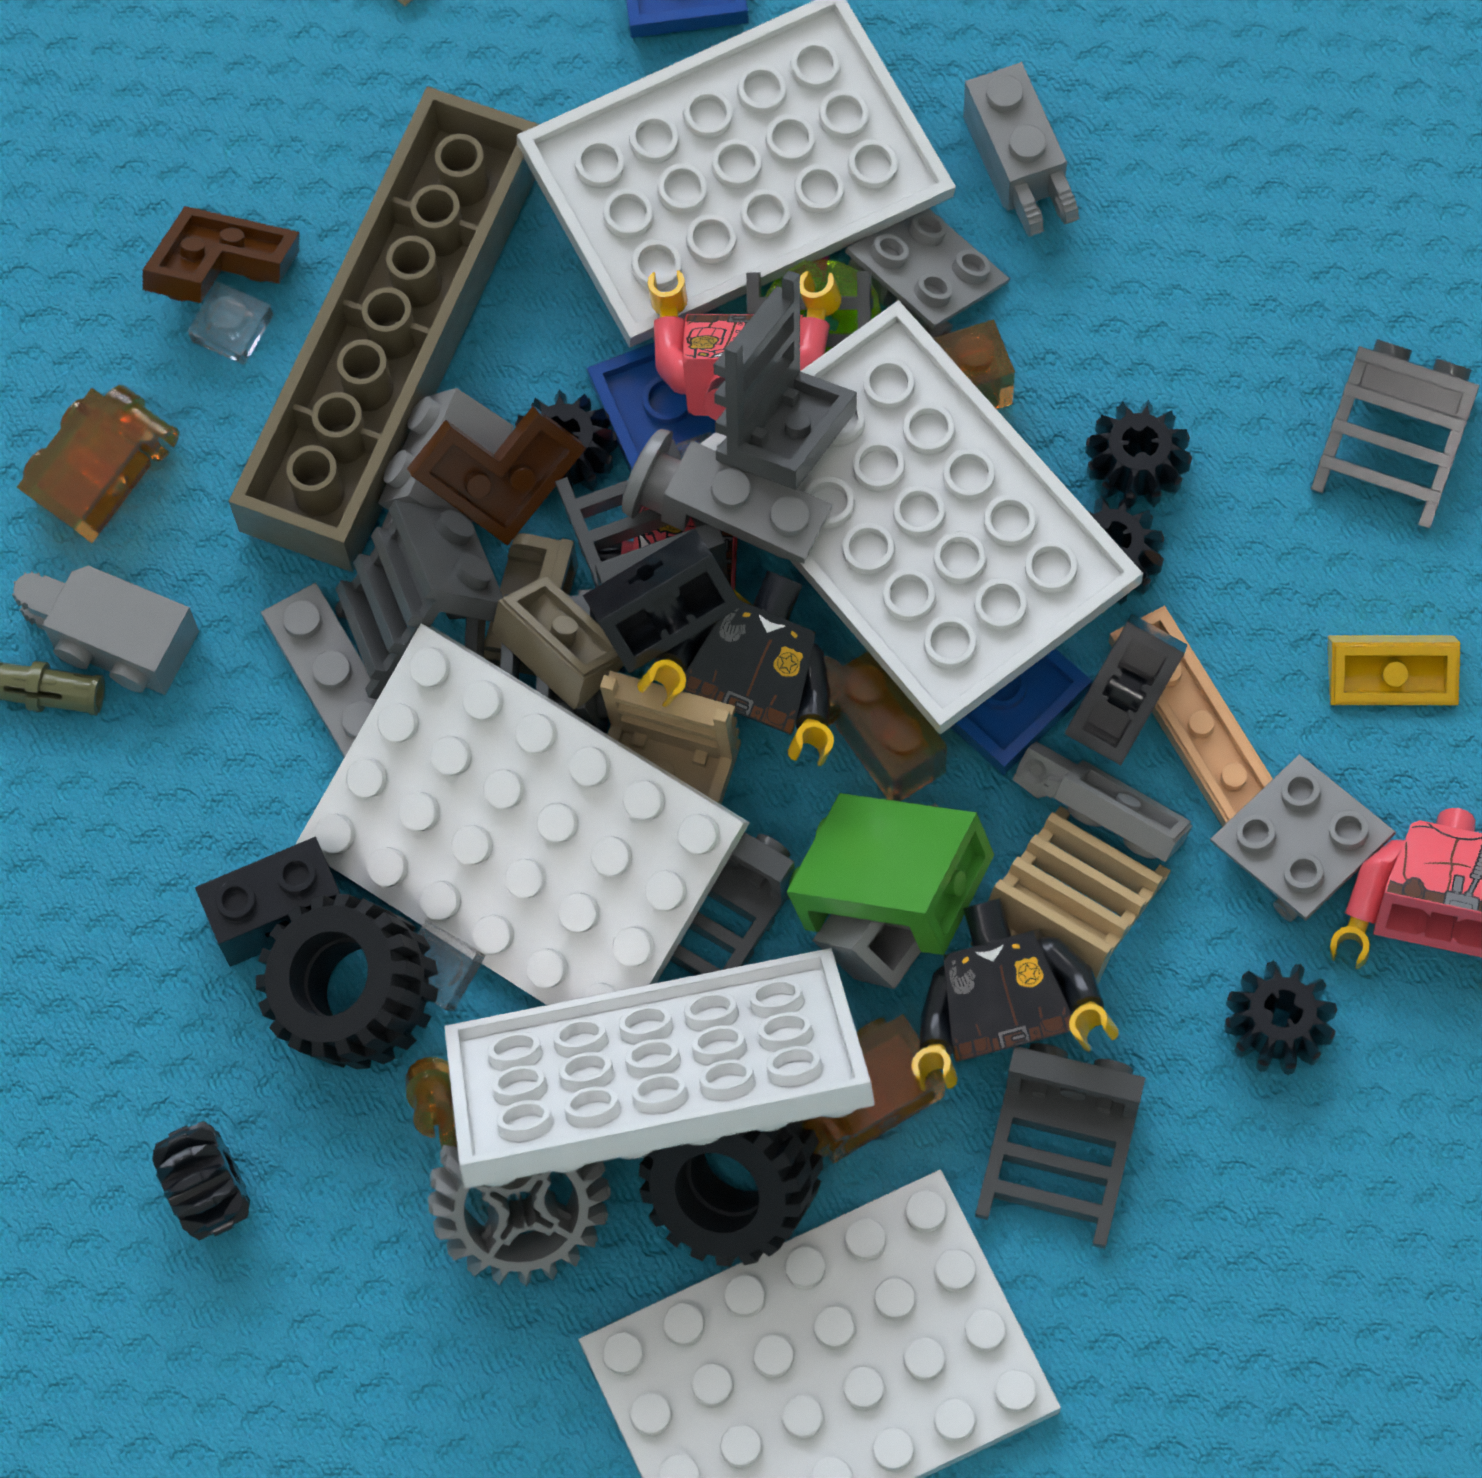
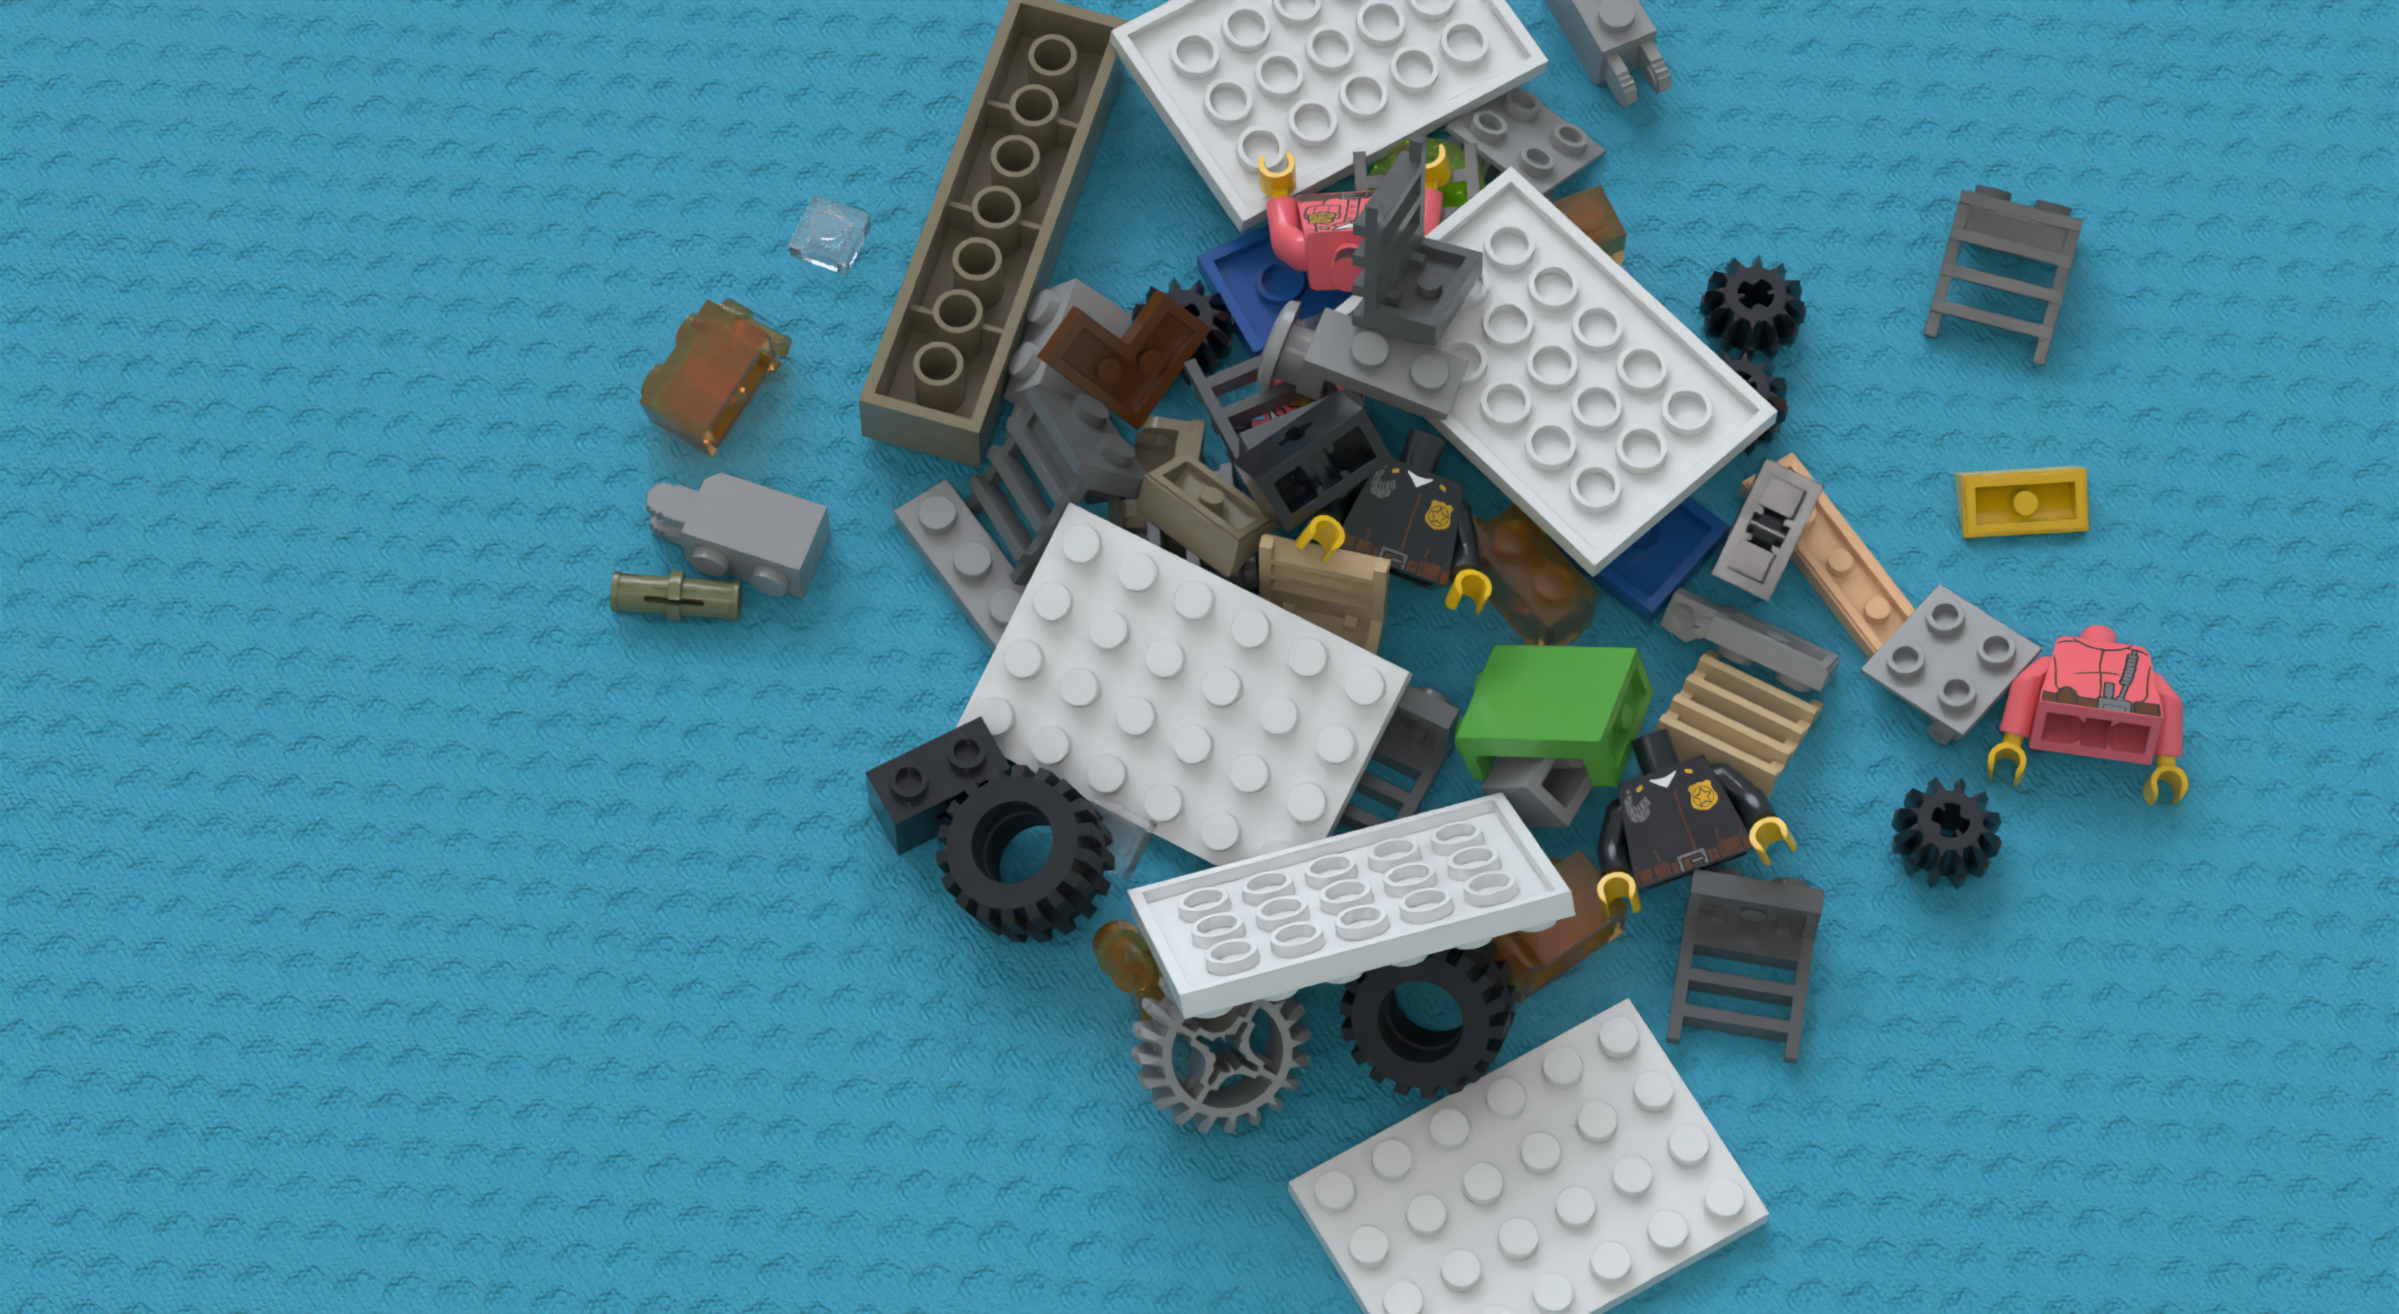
camera: 10 degrees left, 5 degrees down
(201, 1180) = (900, 1053): black gear -> none
(208, 242) = (801, 157): reddish brown plate -> none

